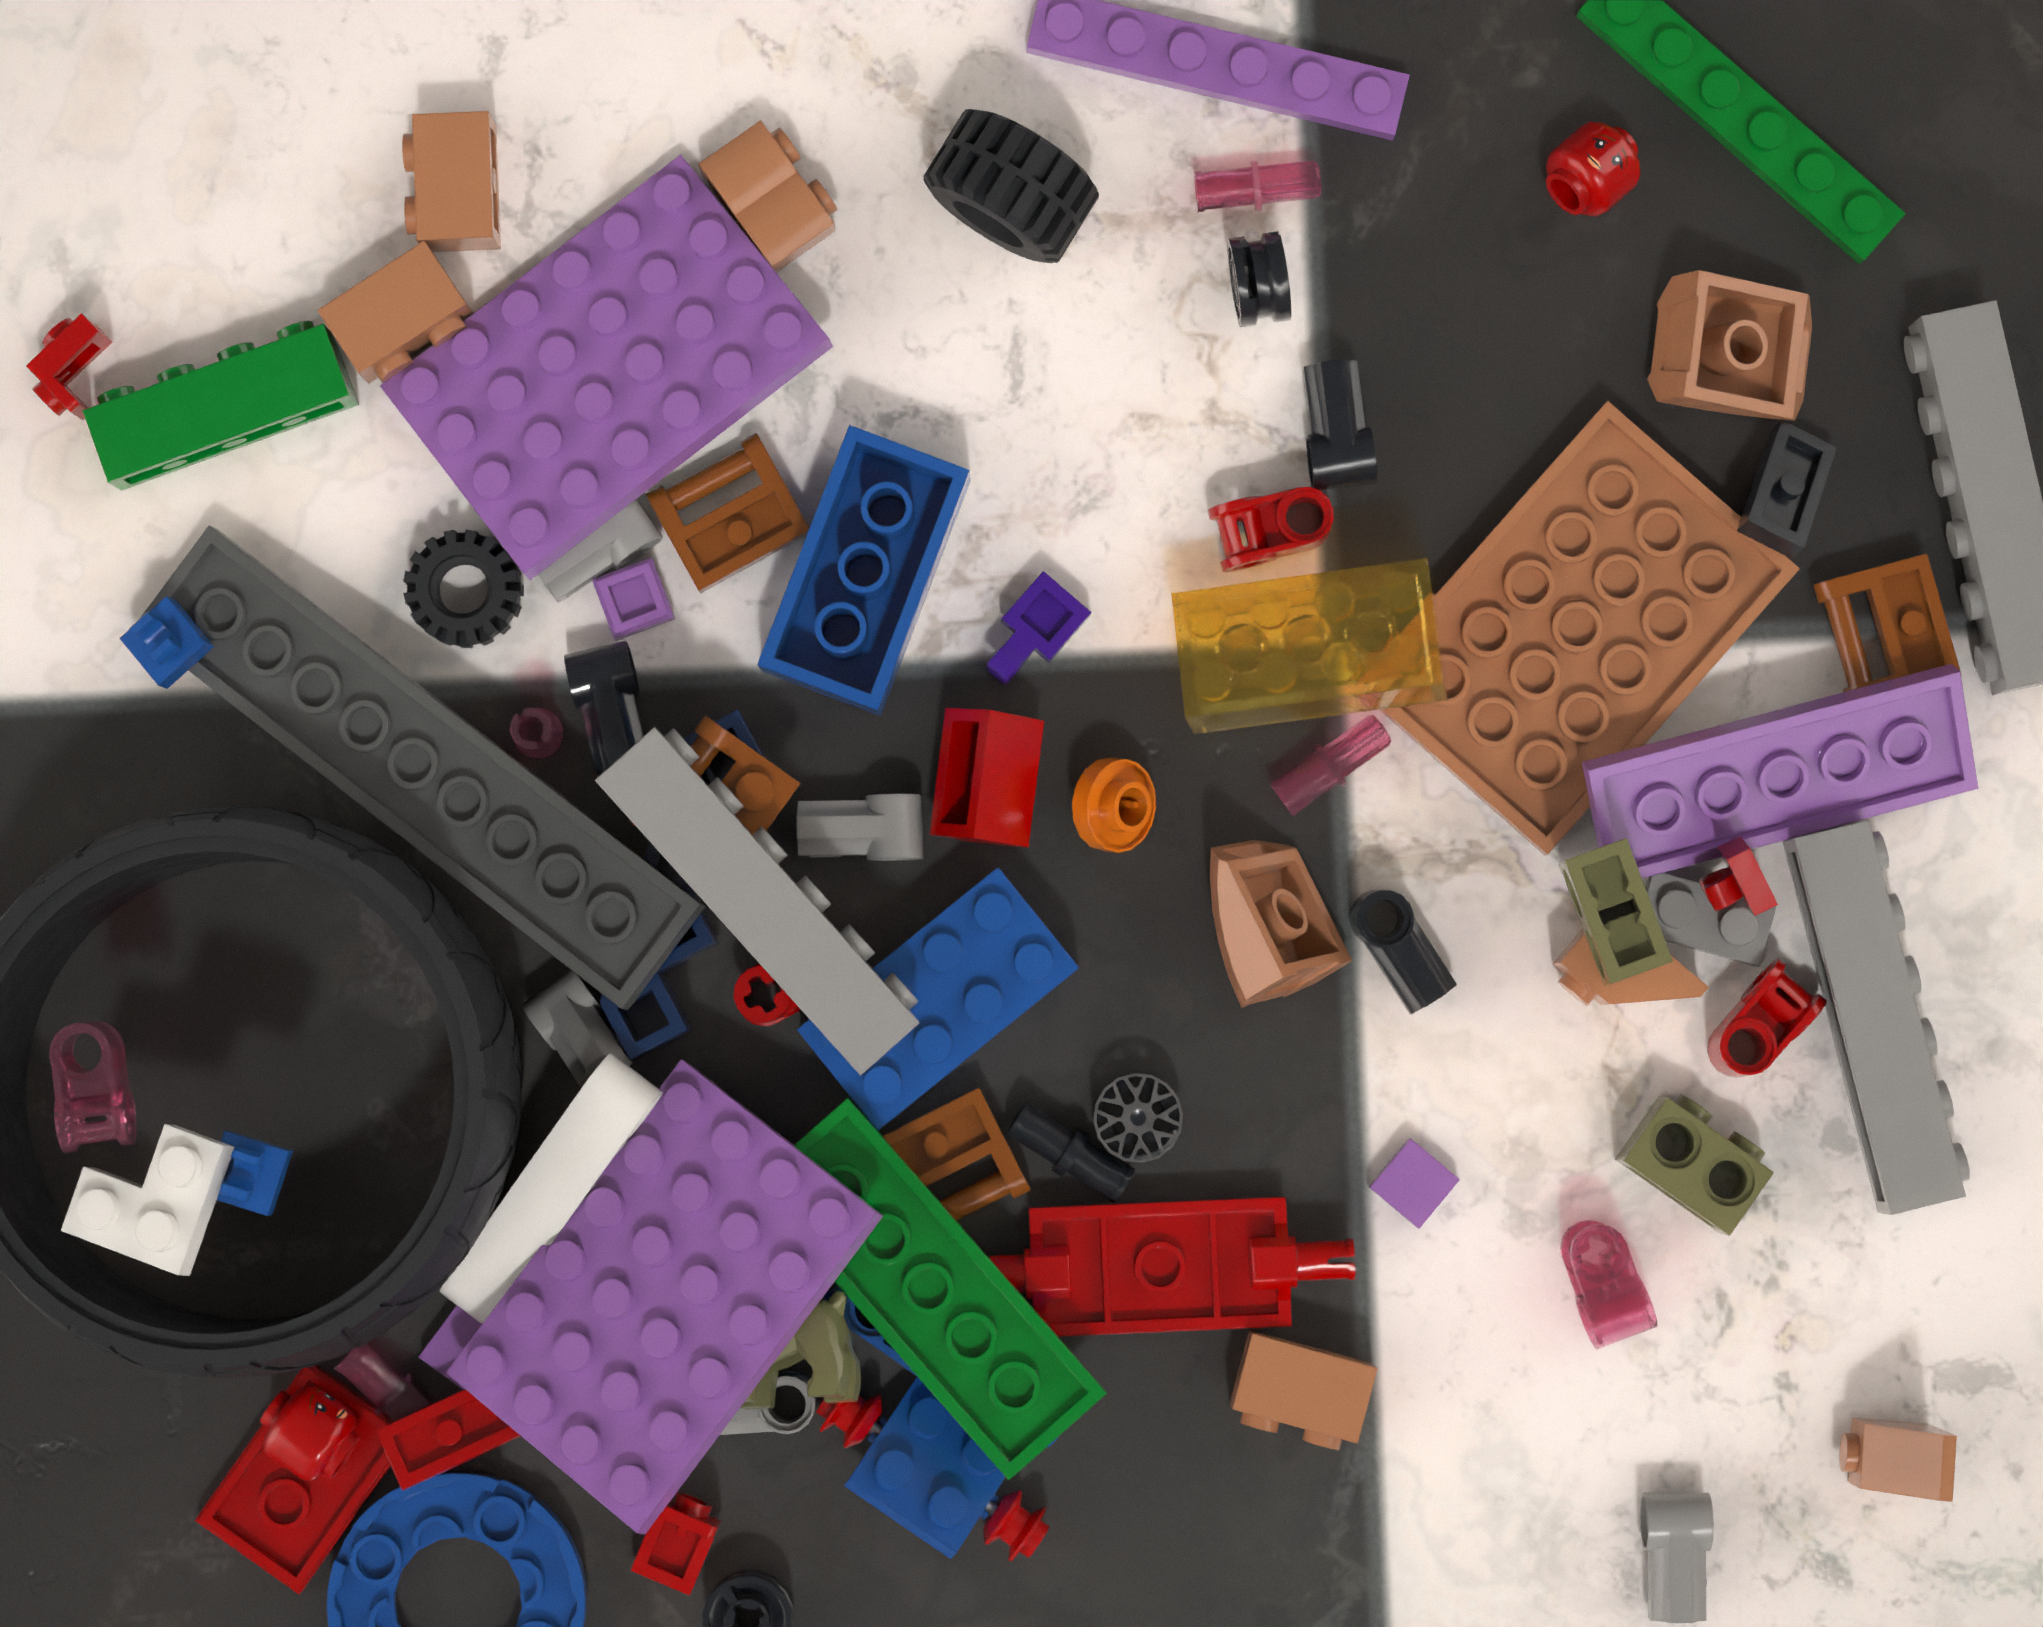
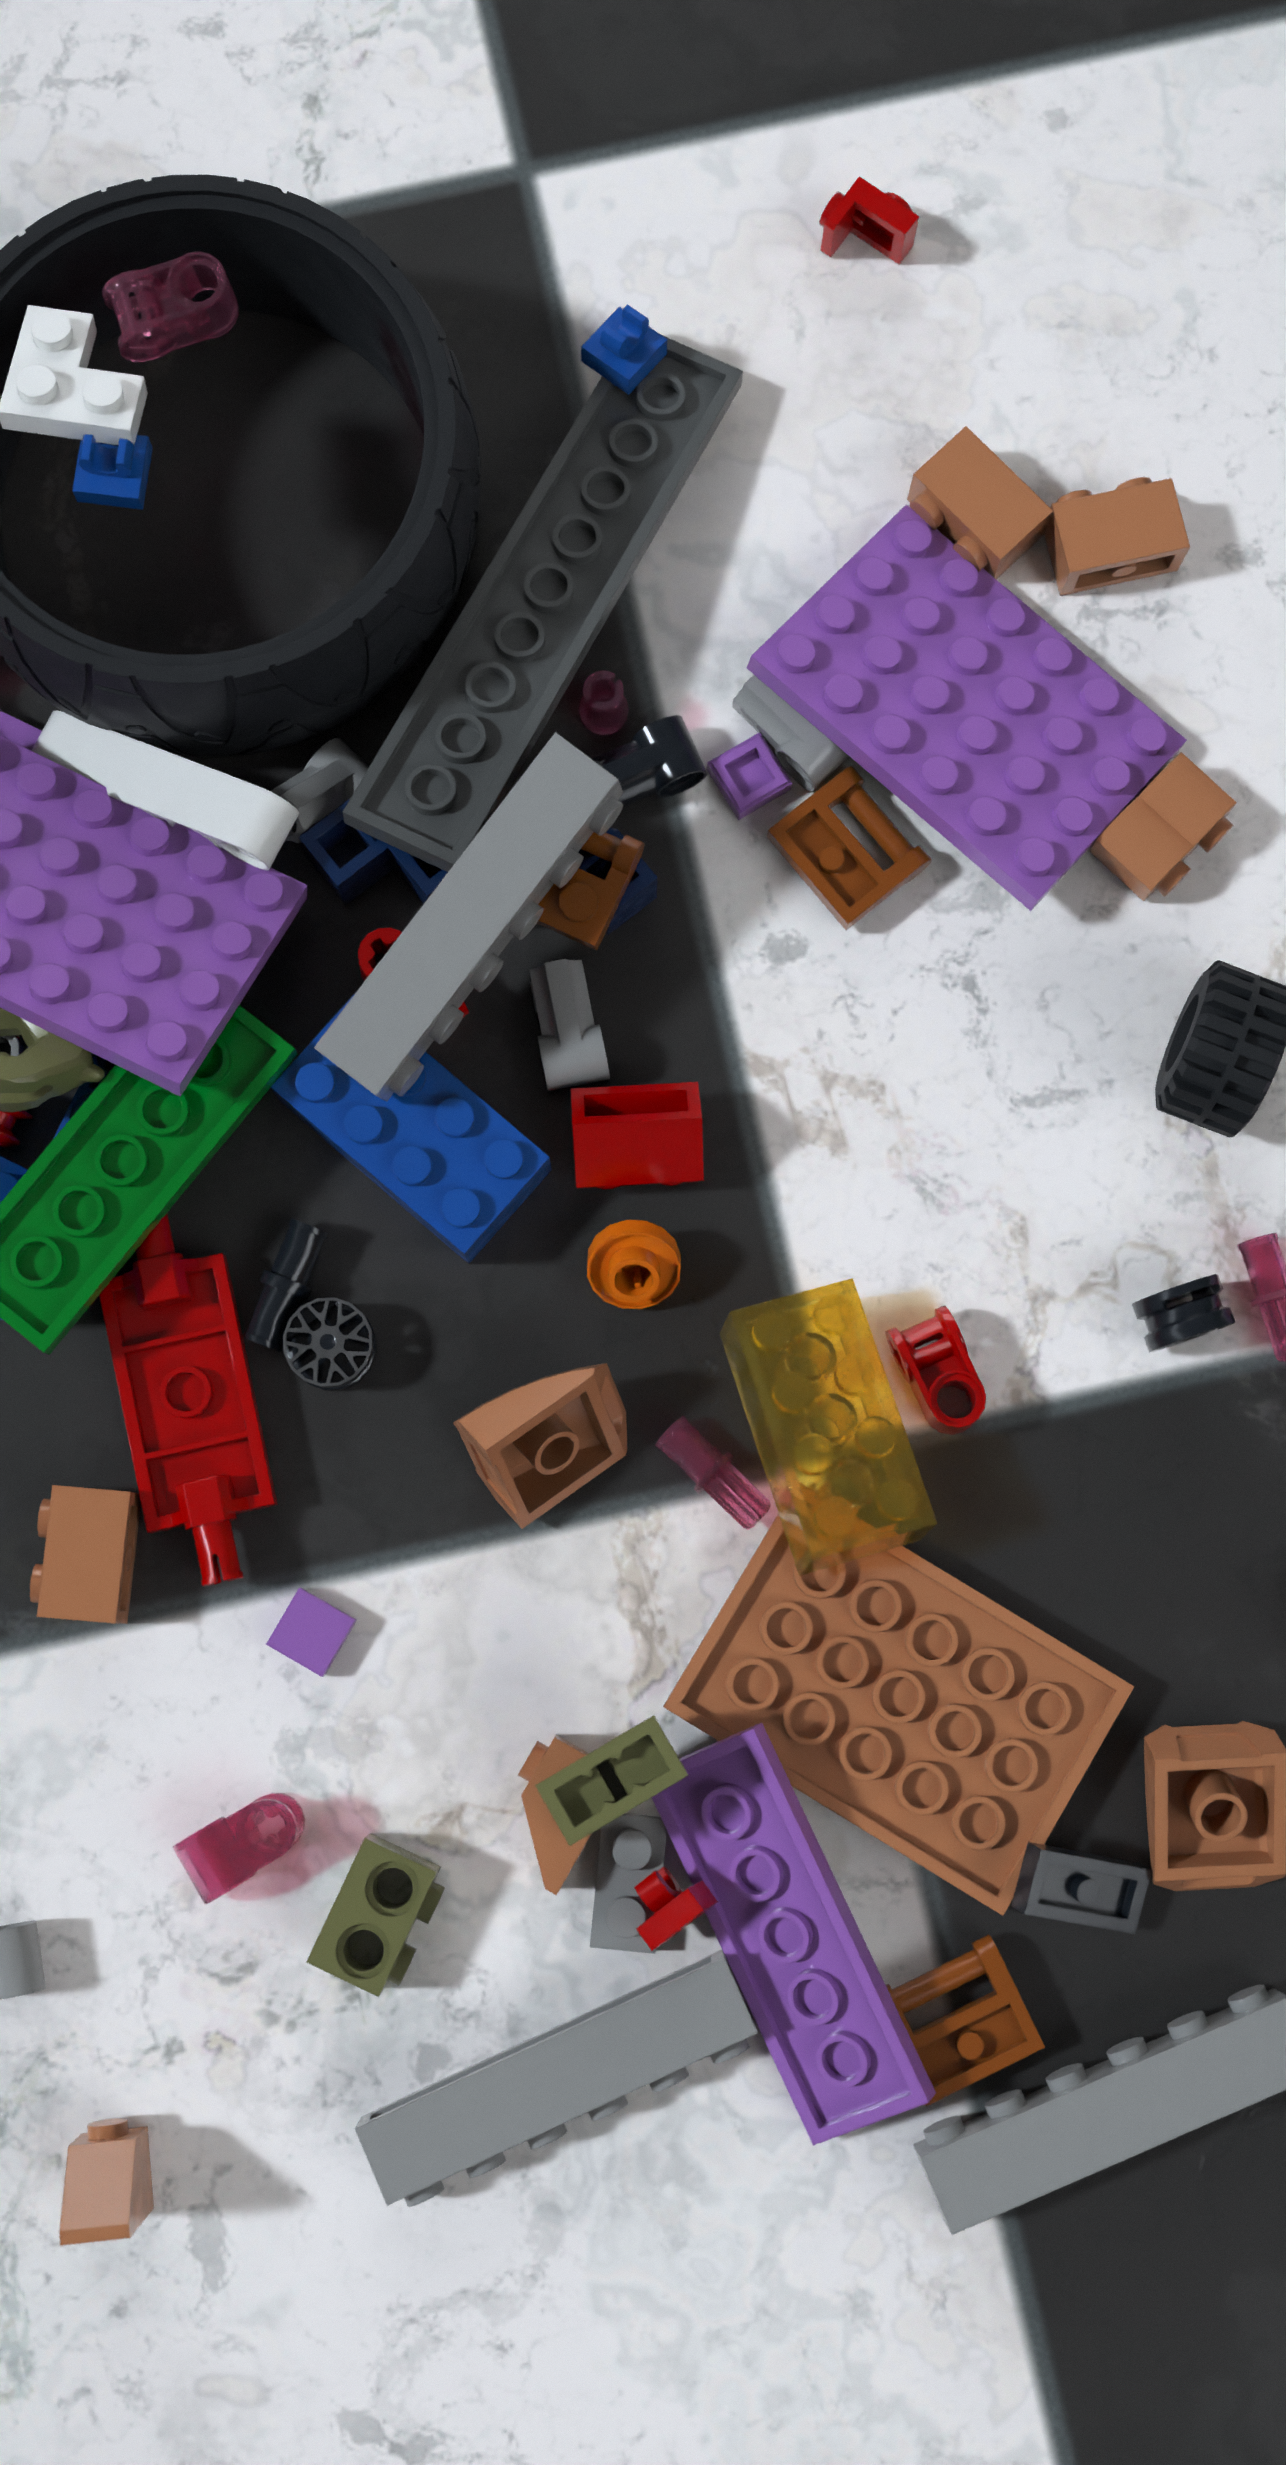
camera: 75 degrees right, 5 degrees down
(220, 405) = (857, 361): green brick -> none
(433, 564) = (716, 581): black tyre -> none
(864, 570) = (818, 980): blue brick -> none
(953, 1139) = (276, 1166): dark orange plate -> none
(1041, 623) = (801, 1163): dark purple plate -> none
(1339, 442) = (1039, 1423): black piece -> none
(1404, 953) = (537, 1580): black piece -> none
(1772, 1013) = (536, 1964): red piece -> none

